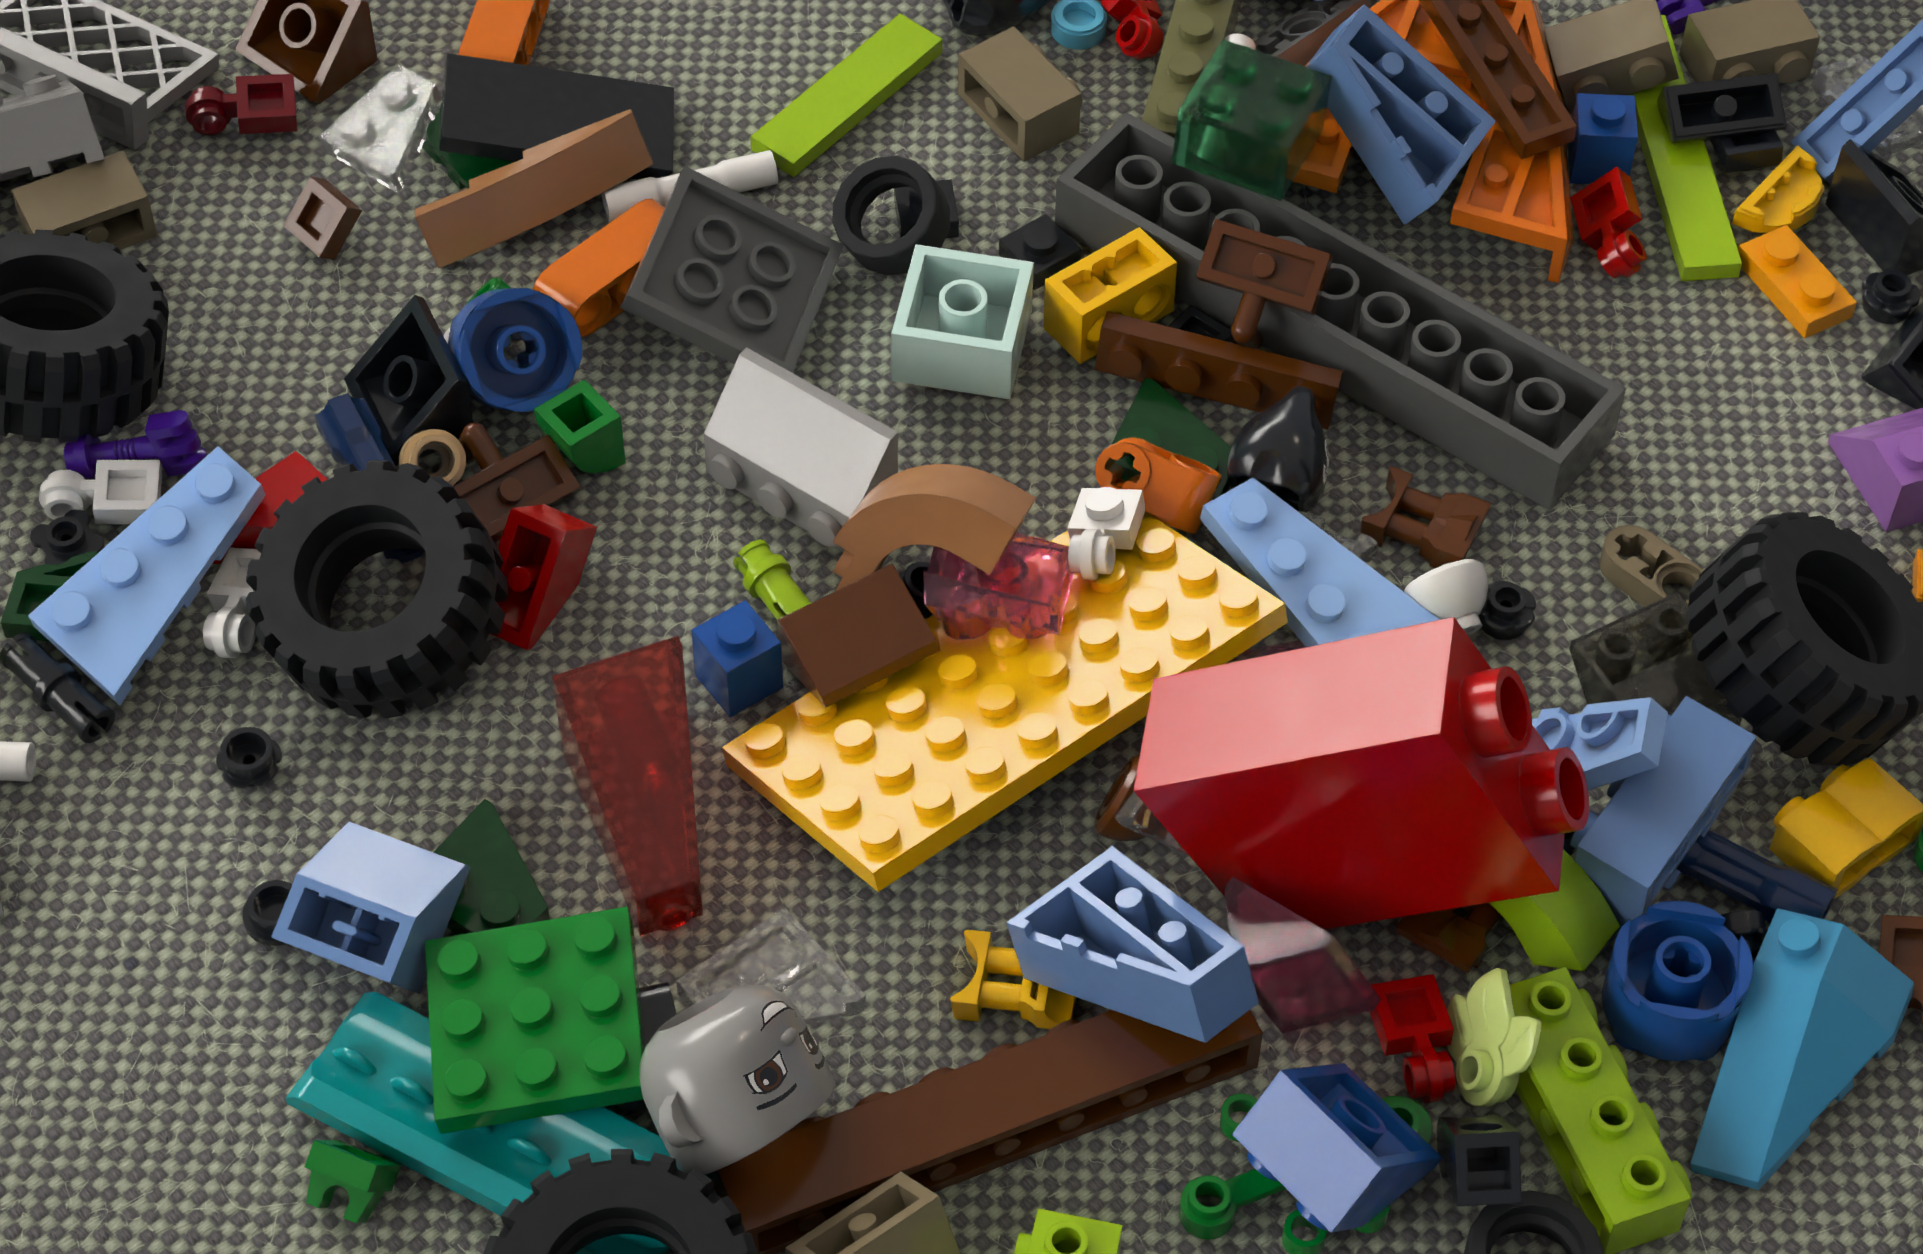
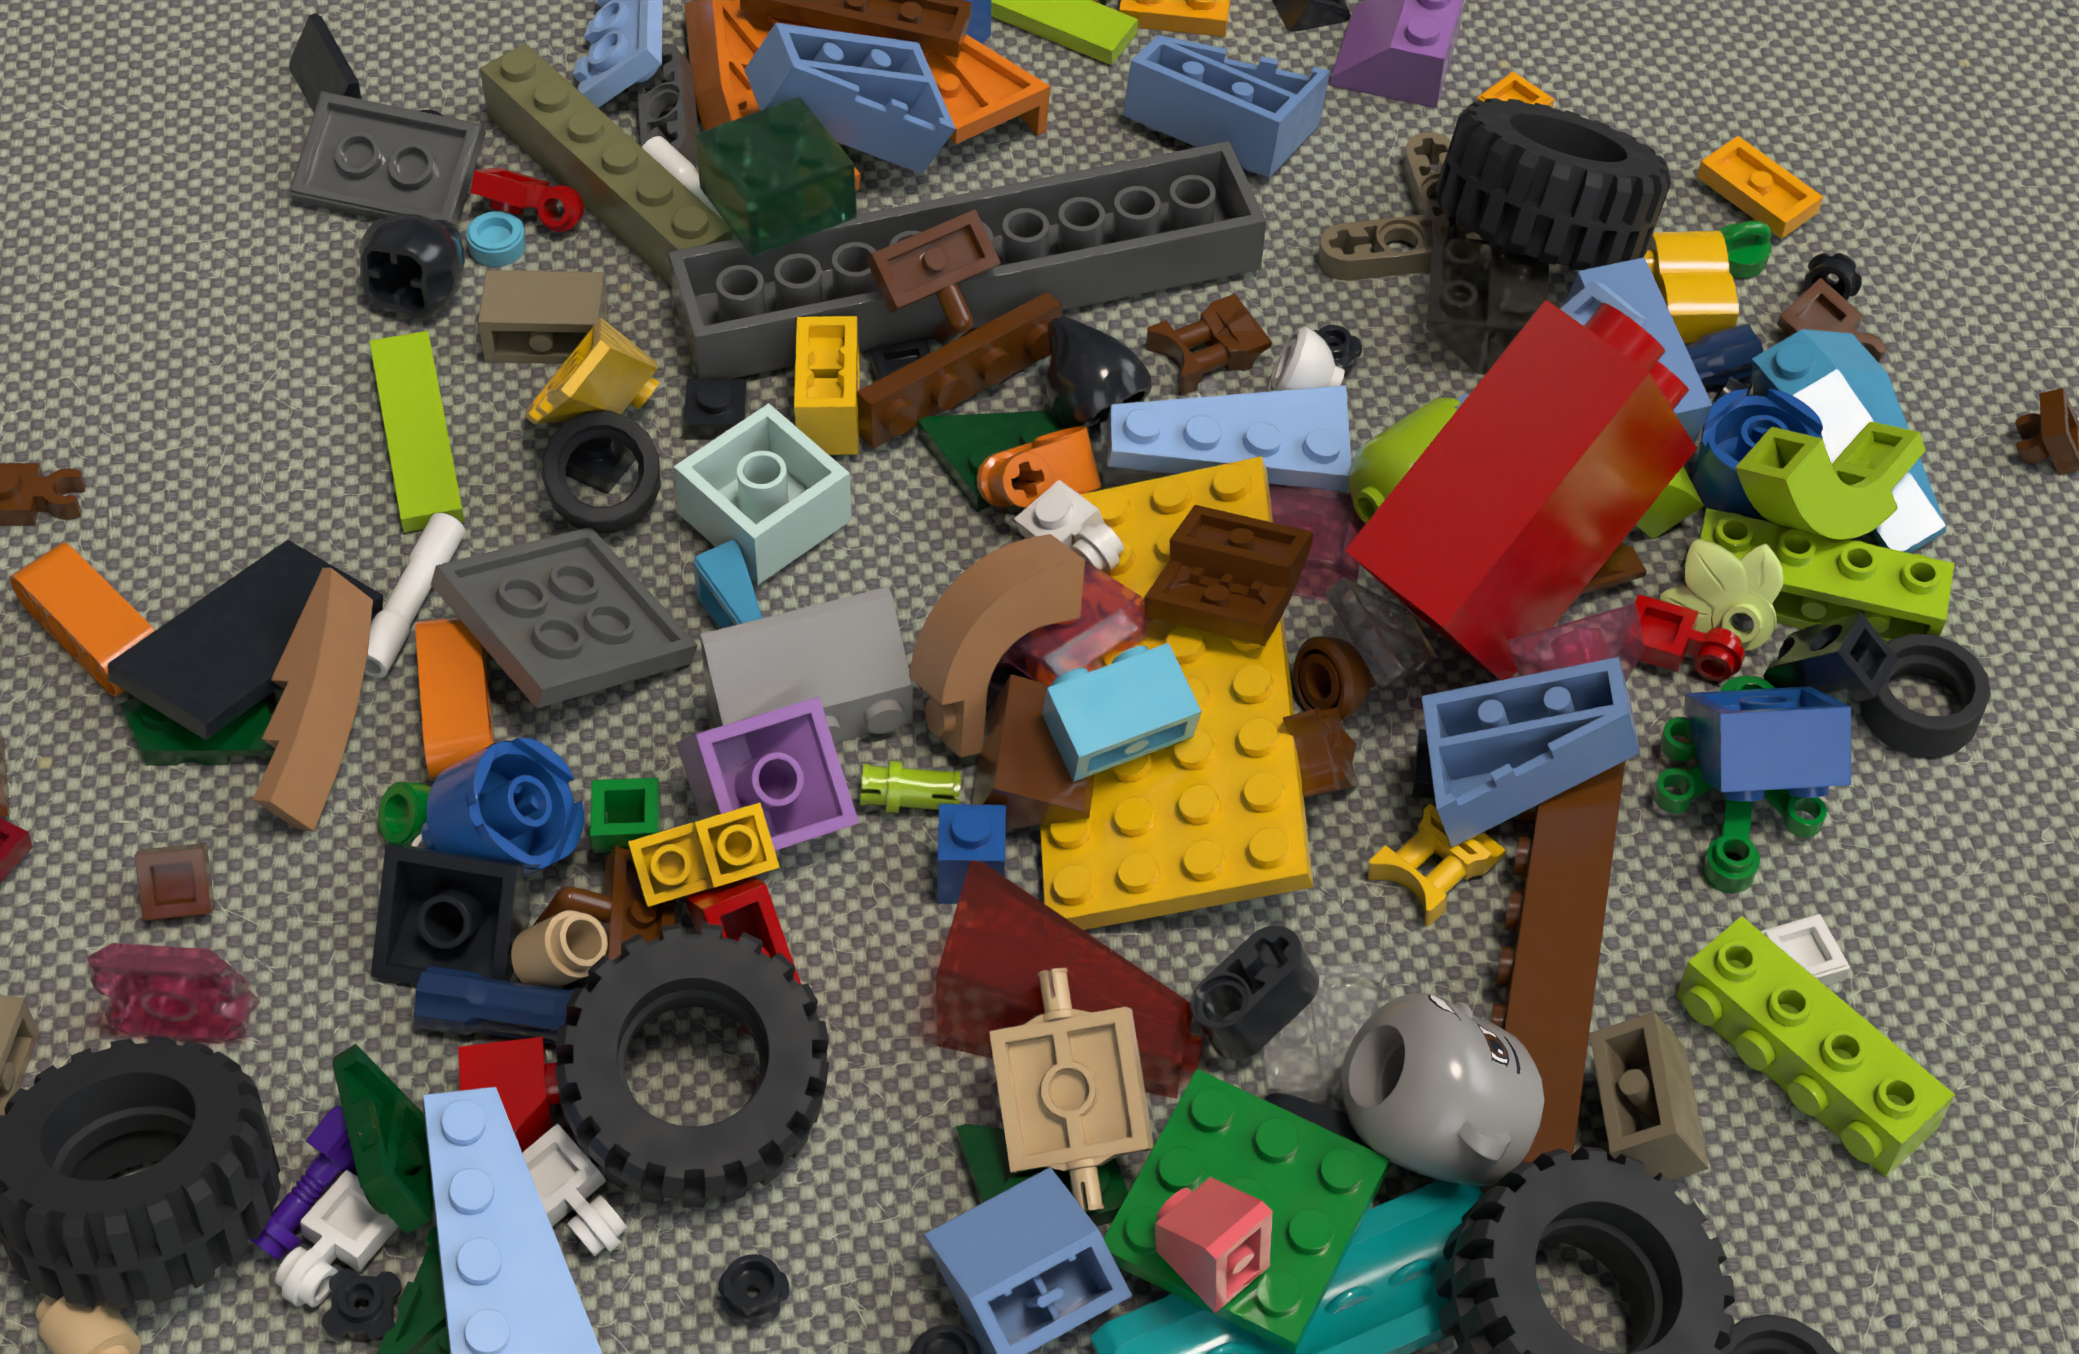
camera: 55 degrees left, 0 degrees up
(178, 447) = (385, 1140): none -> dark green wing
(223, 273) = (172, 992): none -> clear pink slope
(385, 126) = (113, 773): clear wing -> none
(447, 994) = (1215, 1239): none -> coral slope
(541, 836) = (1071, 1089): none -> tan plate
(567, 481) = (703, 854): none -> yellow slope
(670, 482) = (775, 760): none -> medium lavender slope
(741, 910) = (1265, 963): none -> black beam
(857, 361) = (725, 586): none -> dark azure slope
(912, 649) = (1120, 710): none -> medium azure brick
(962, 144) = (599, 375): none -> yellow wedge
(1048, 838) = (1322, 751): none -> reddish brown piece
(1119, 646) = (1229, 574): none -> reddish brown slope
(1603, 219) = (1031, 53): red plate -> none
(1650, 1053) = (1799, 487): none -> lime arch
(1695, 376) = (1212, 100): none -> medium blue wedge

